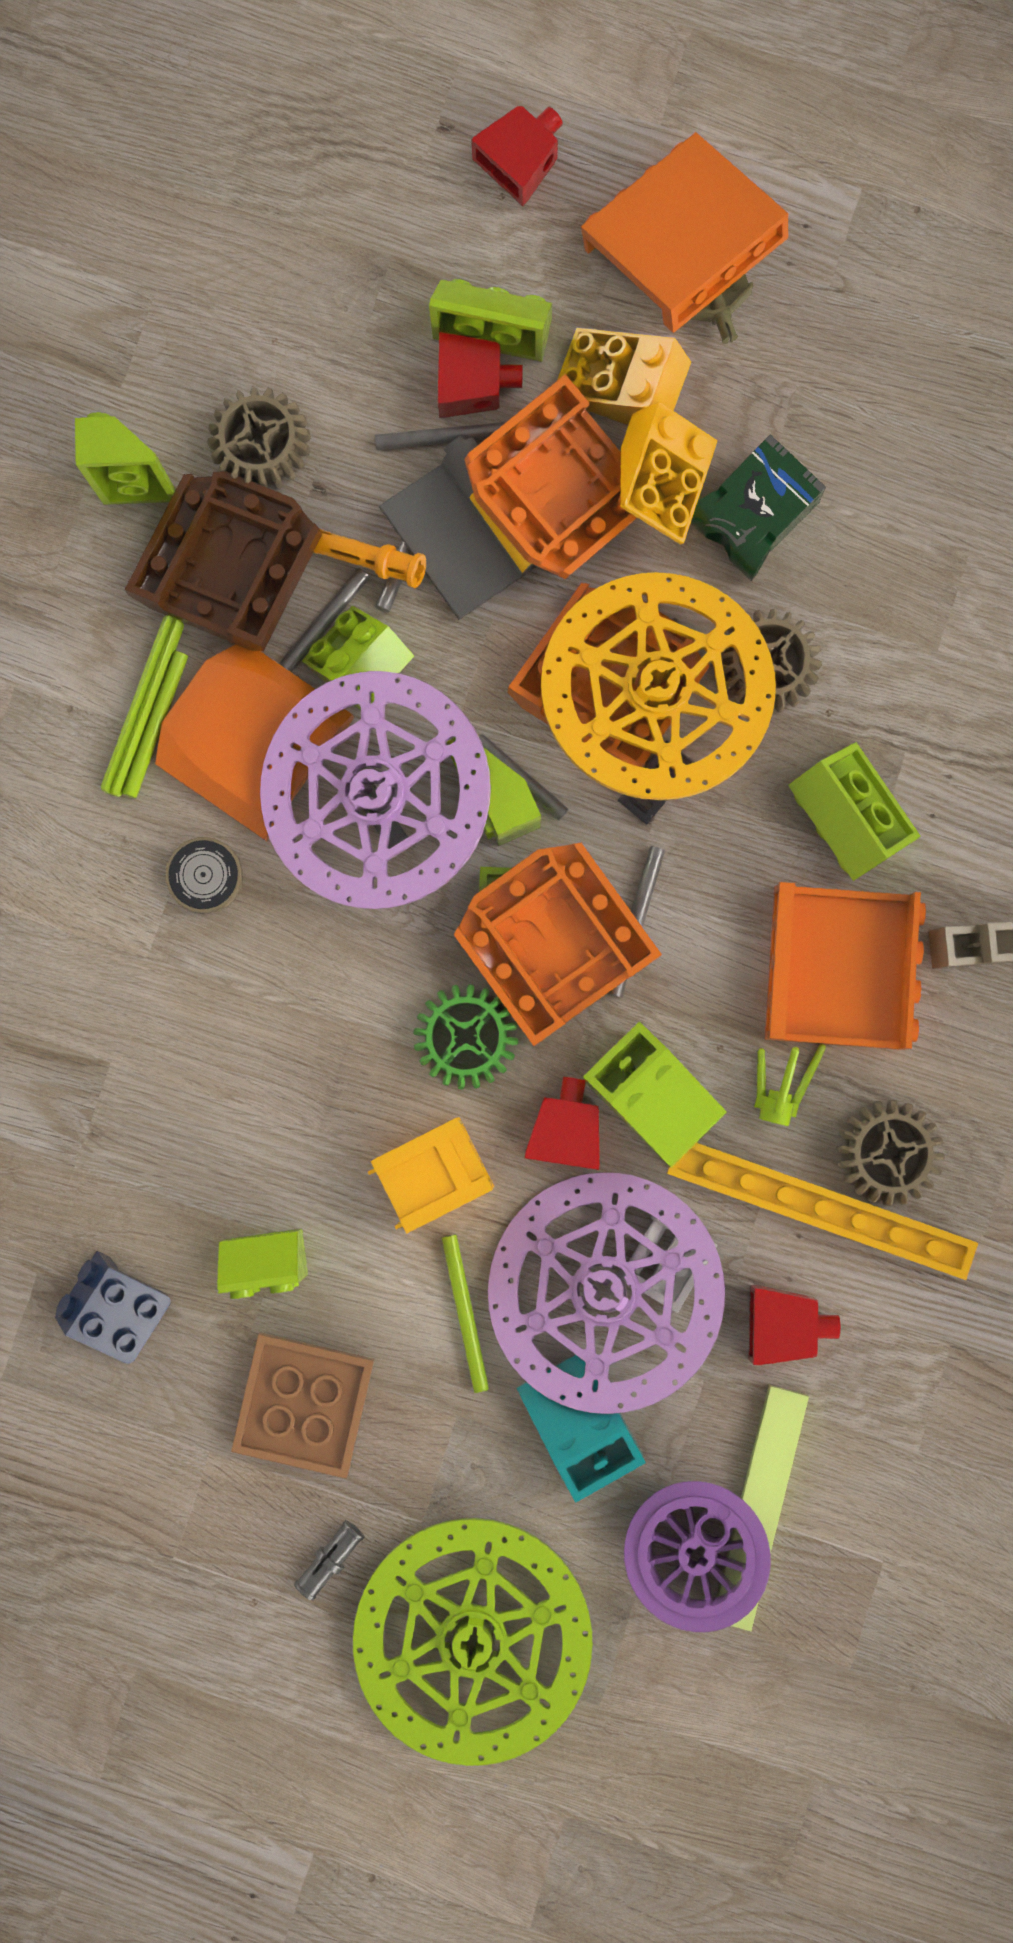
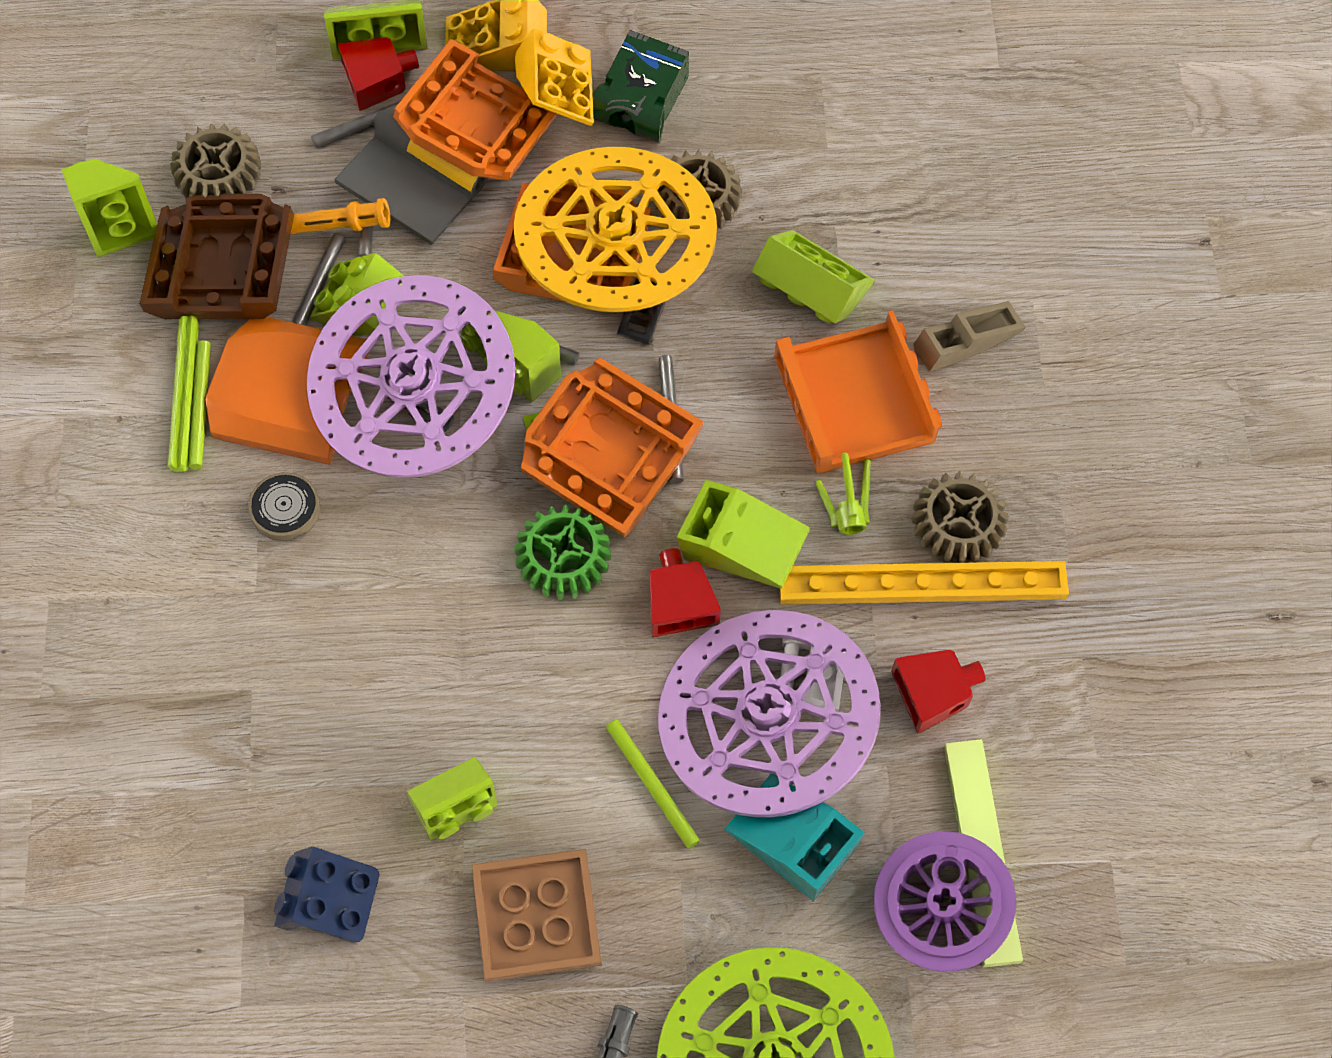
camera: 30 degrees left, 20 degrees down
(432, 1175) = (578, 664): yellow container -> none

